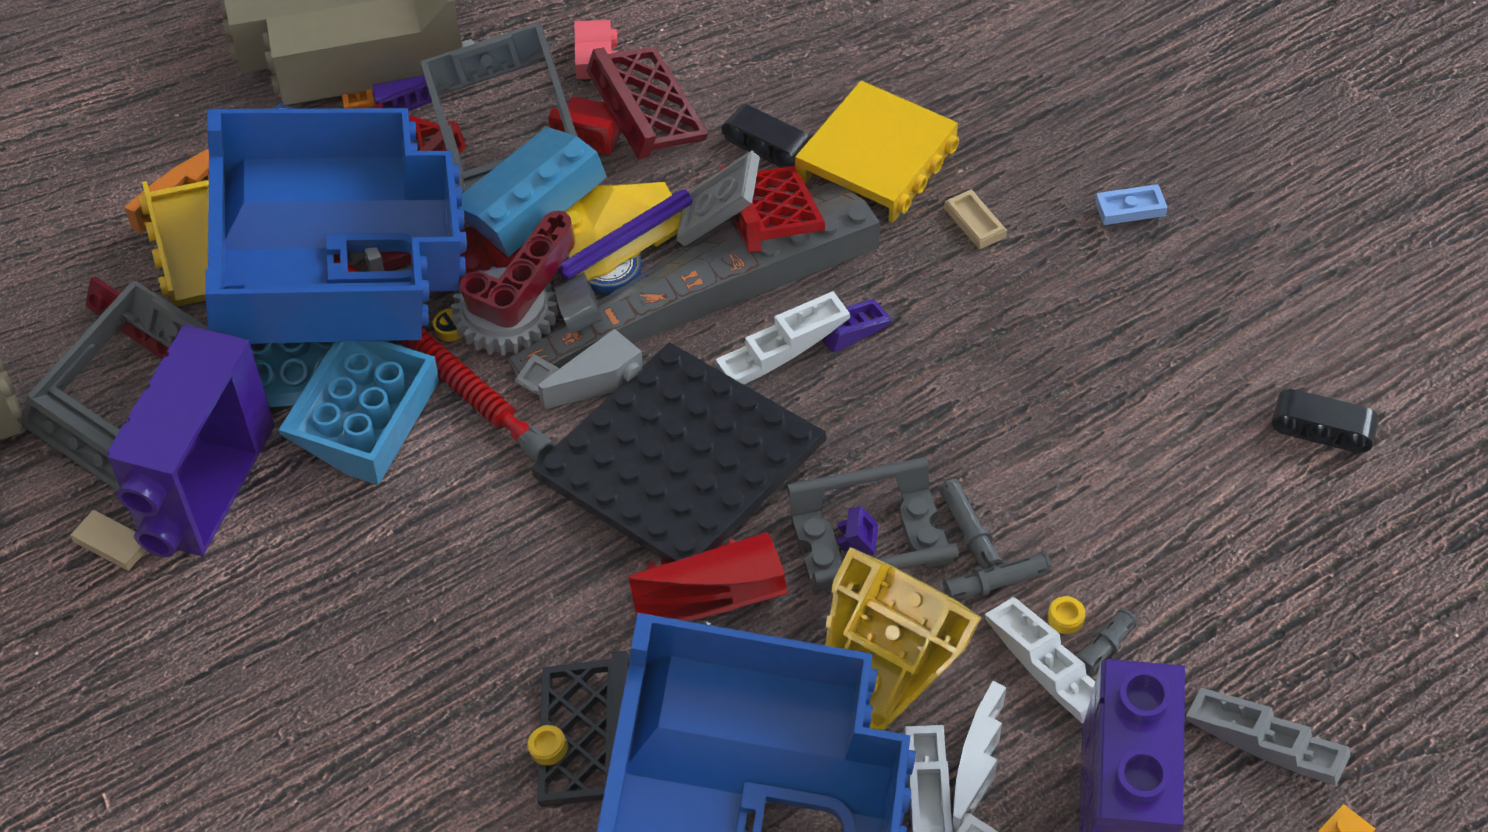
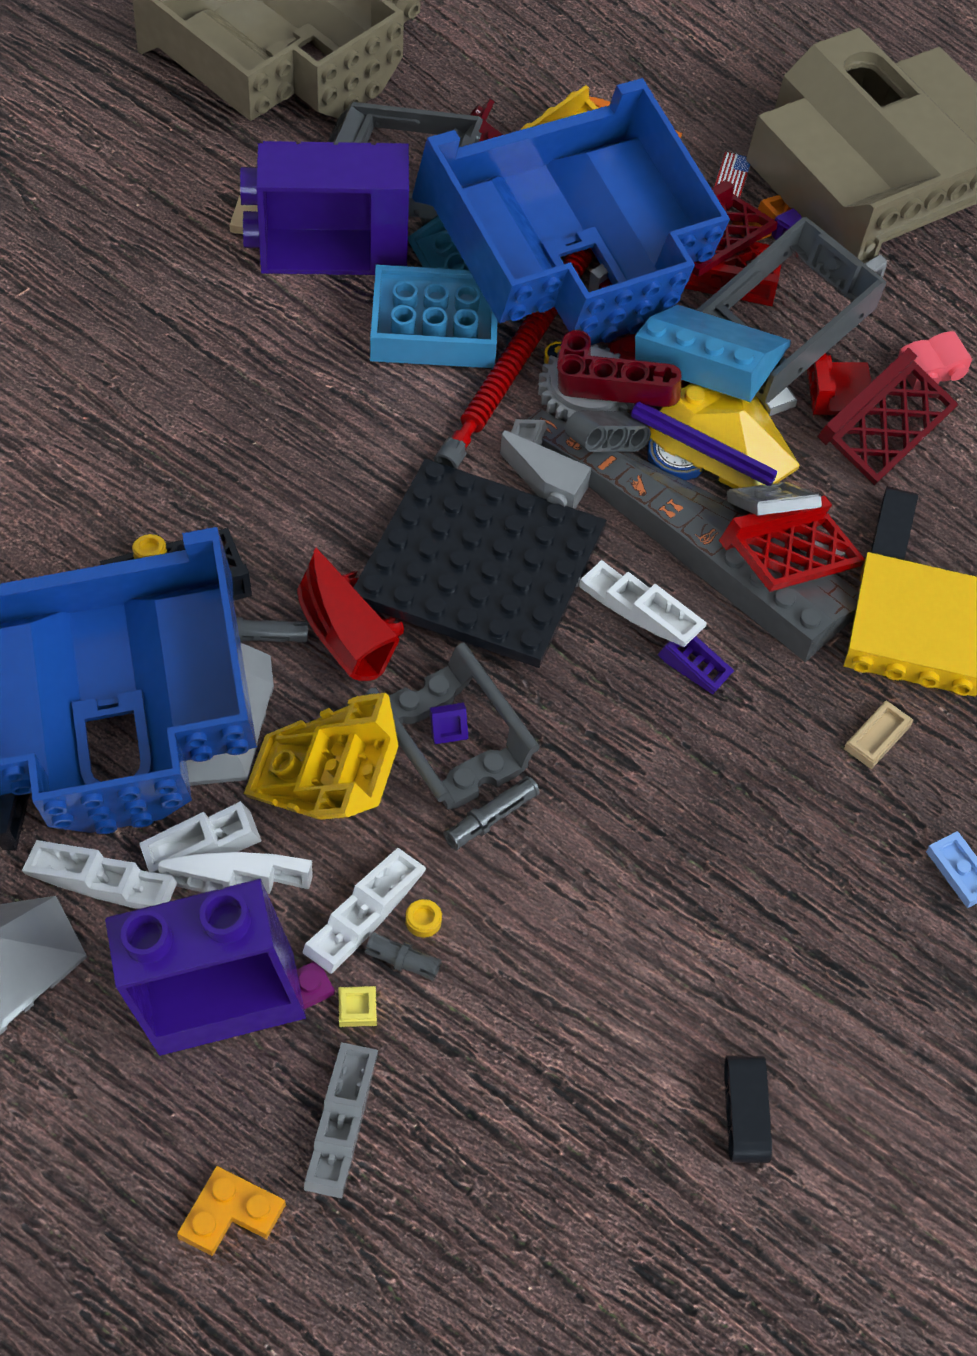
camera: 65 degrees right, 5 degrees up
(982, 580) = (433, 837): dark grey pin -> none

